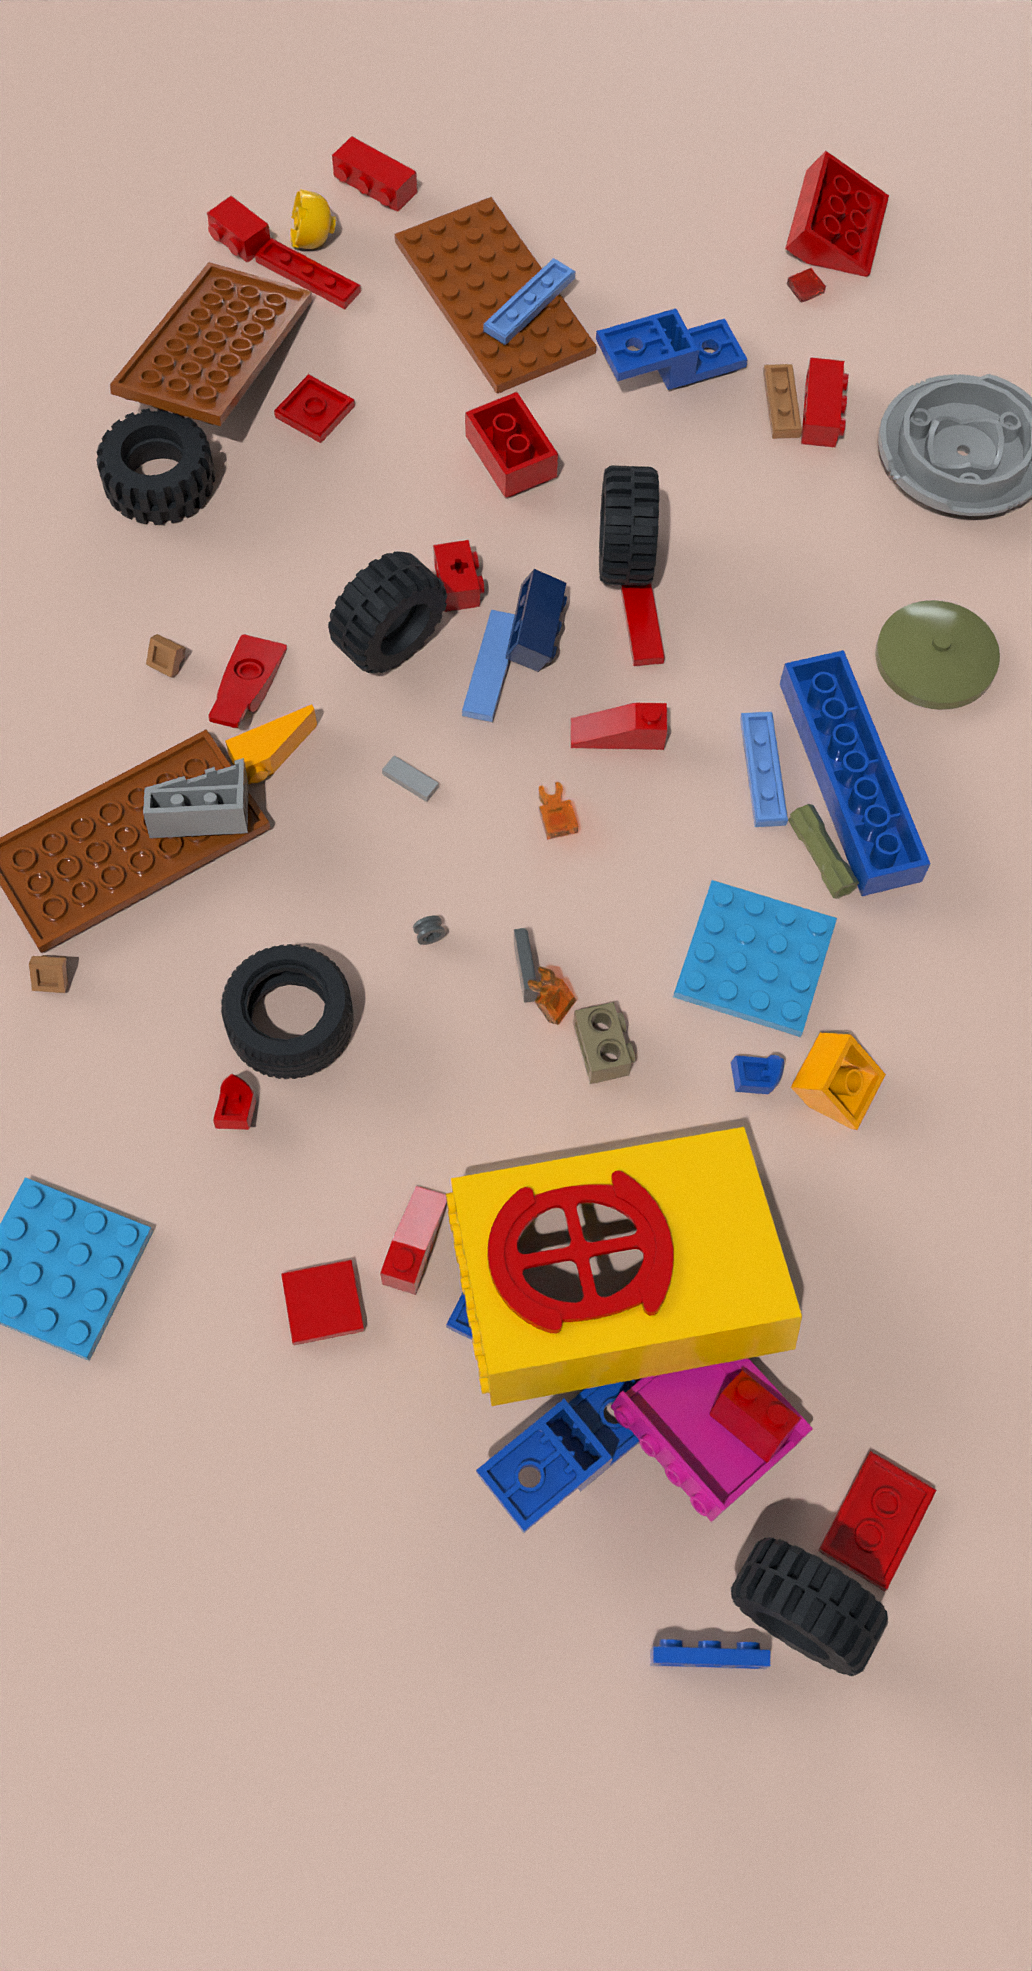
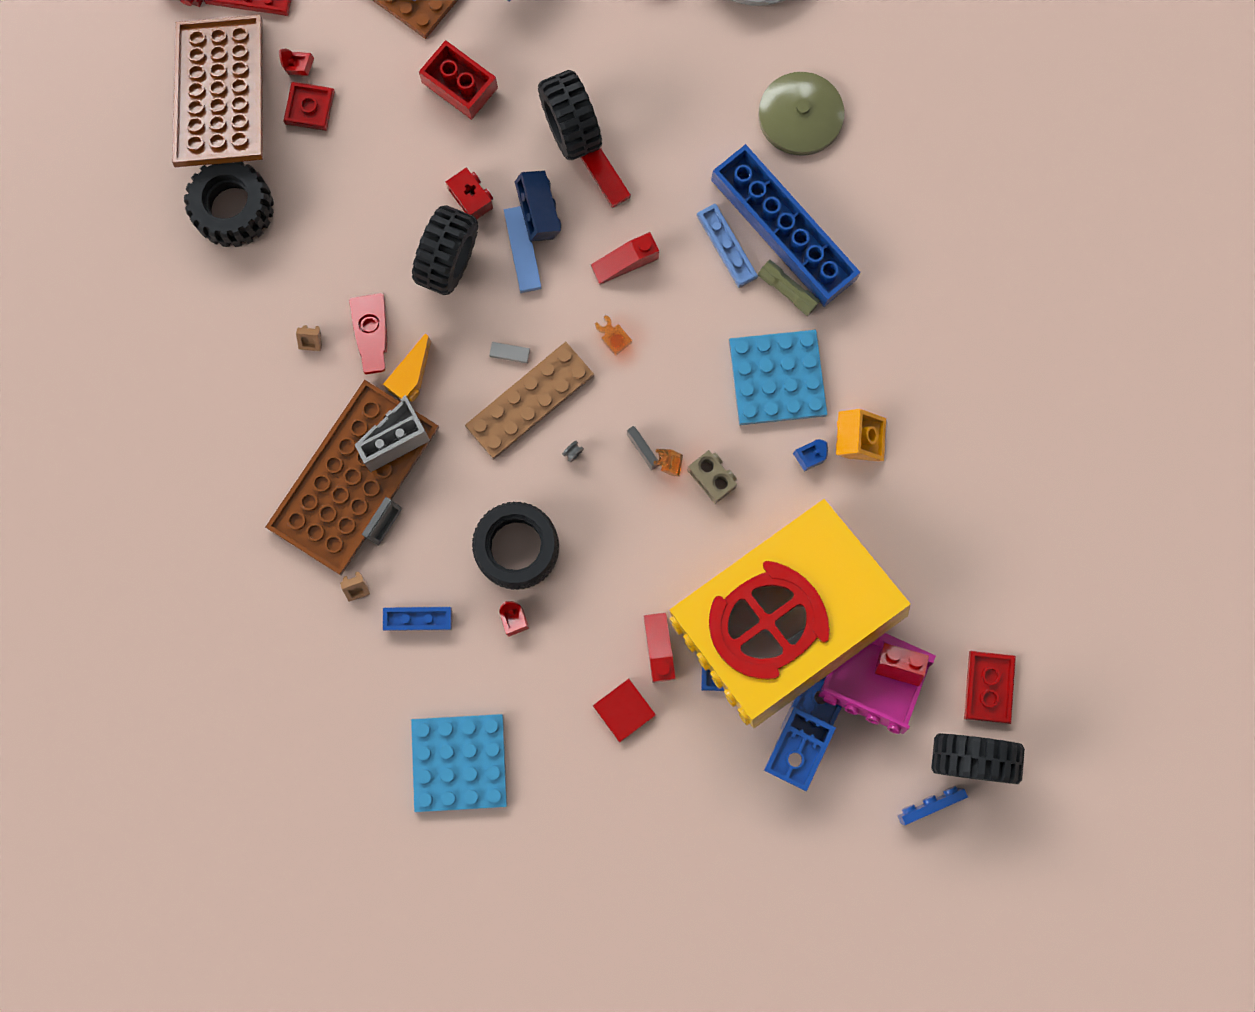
camera: 25 degrees left, 15 degrees up
(107, 1050) = (417, 618): none -> blue plate
(131, 907) = (382, 521): none -> dark grey tile
(323, 355) = (296, 62): none -> red plate
(405, 845) = (529, 400): none -> medium nougat plate

